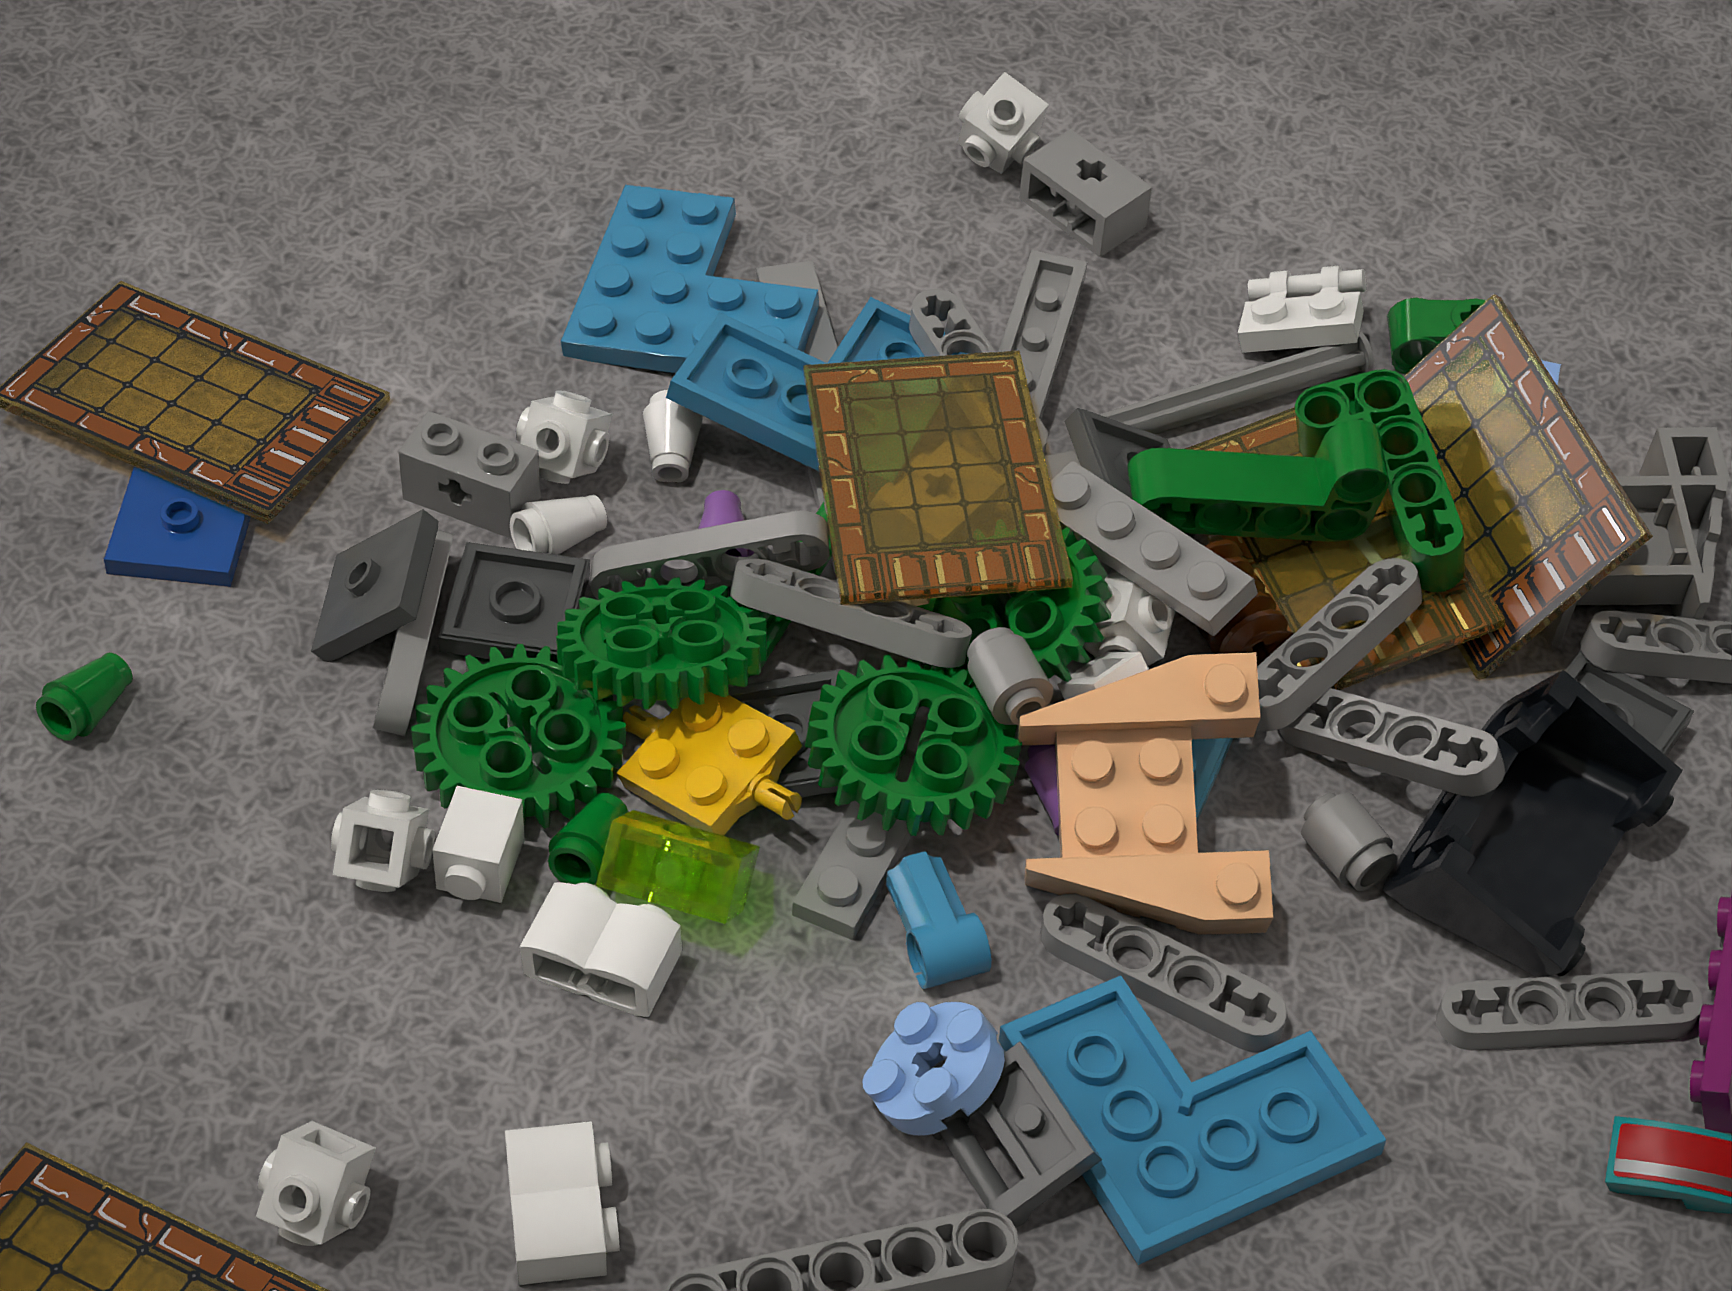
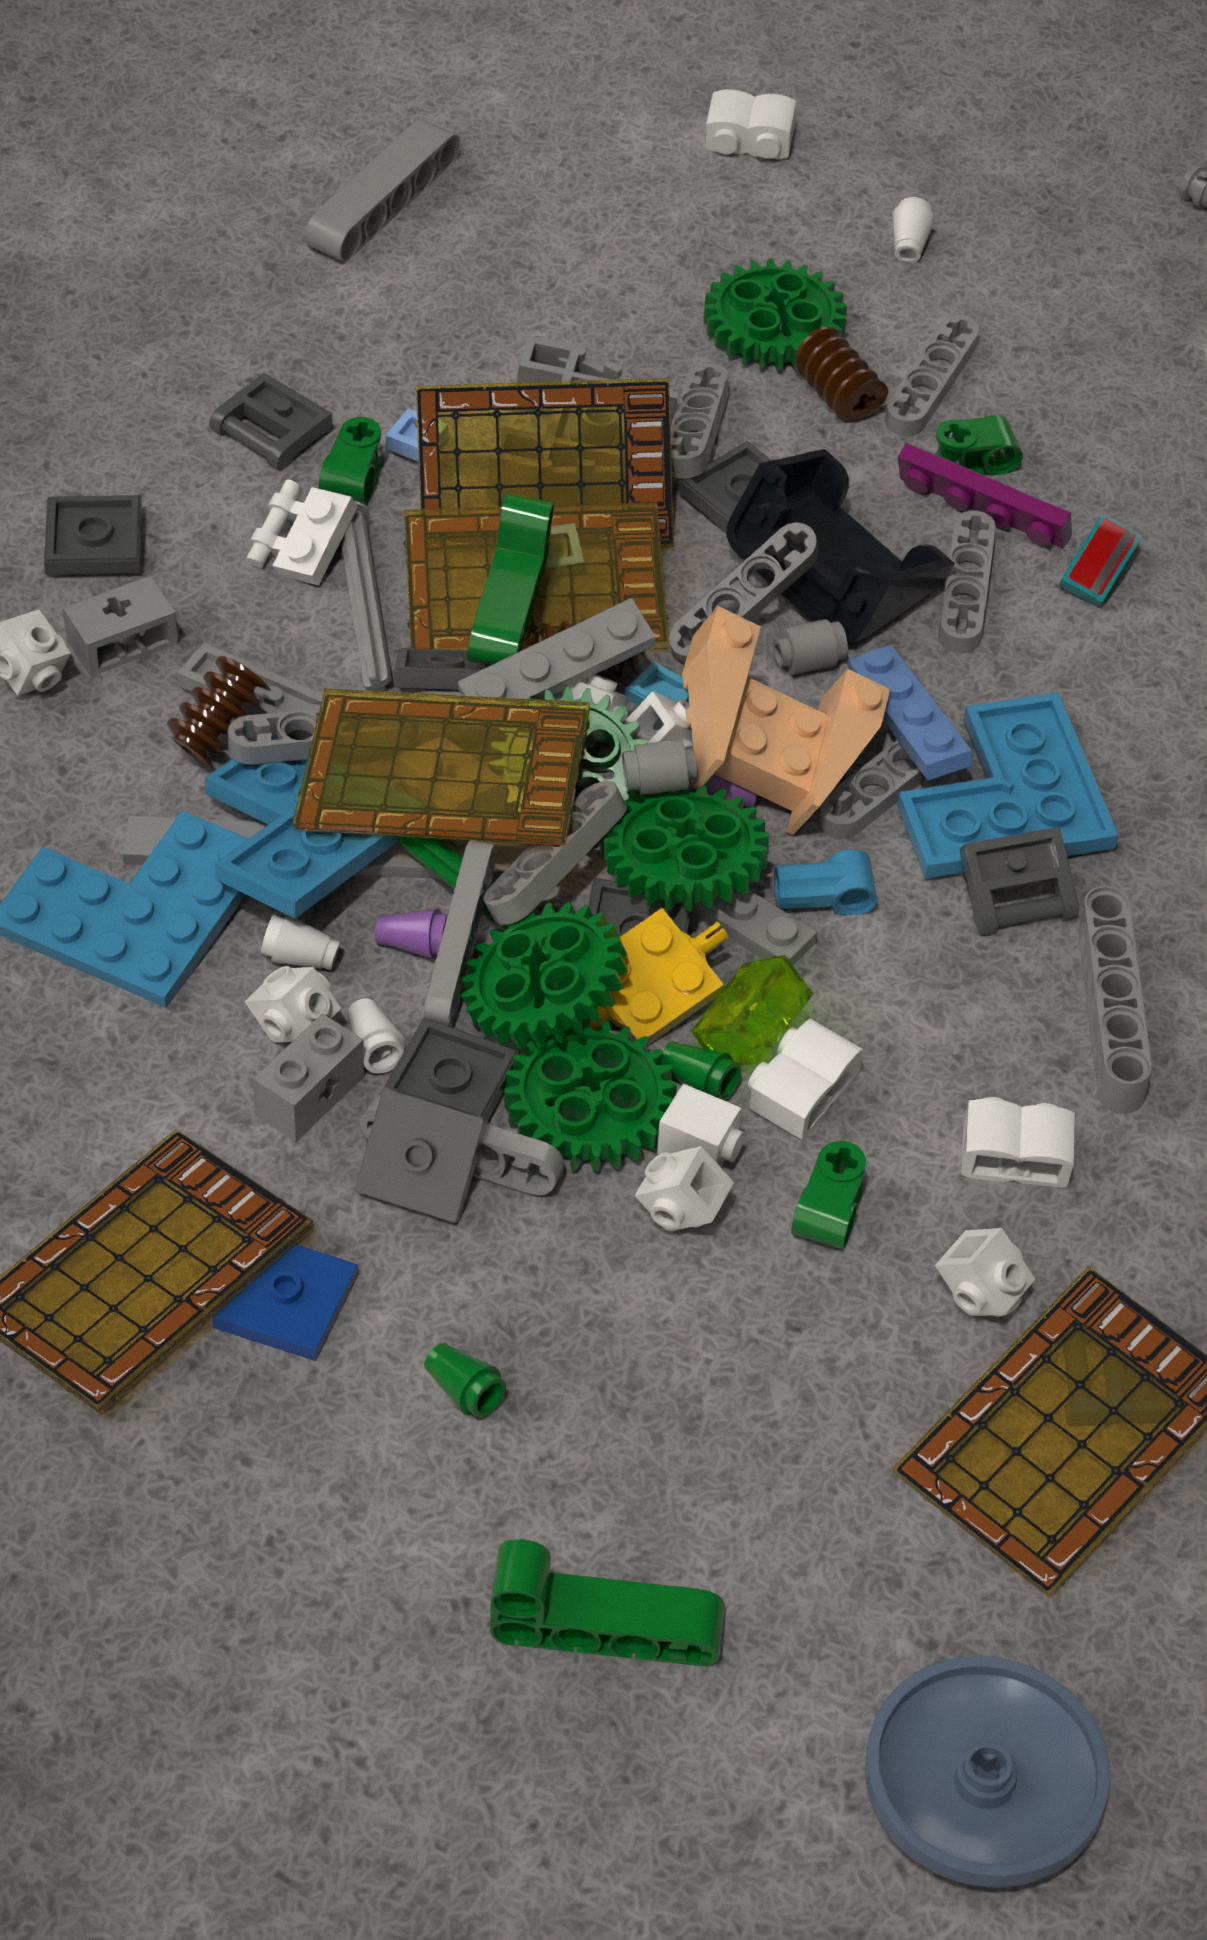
camera: 75 degrees left, 0 degrees up
(411, 1002) = (831, 1196): none -> green piece
(903, 1075) = (929, 906): light blue plate -> none
(986, 281) = (215, 708): none -> reddish brown piece
(1221, 147) = (93, 534): none -> dark grey plate
(1267, 965) = (914, 715): none -> medium blue plate
(1380, 596) = (653, 597): light grey beam -> none
(1417, 492) = (583, 511): green beam -> none
(1497, 262) = (276, 409): none -> dark grey plate

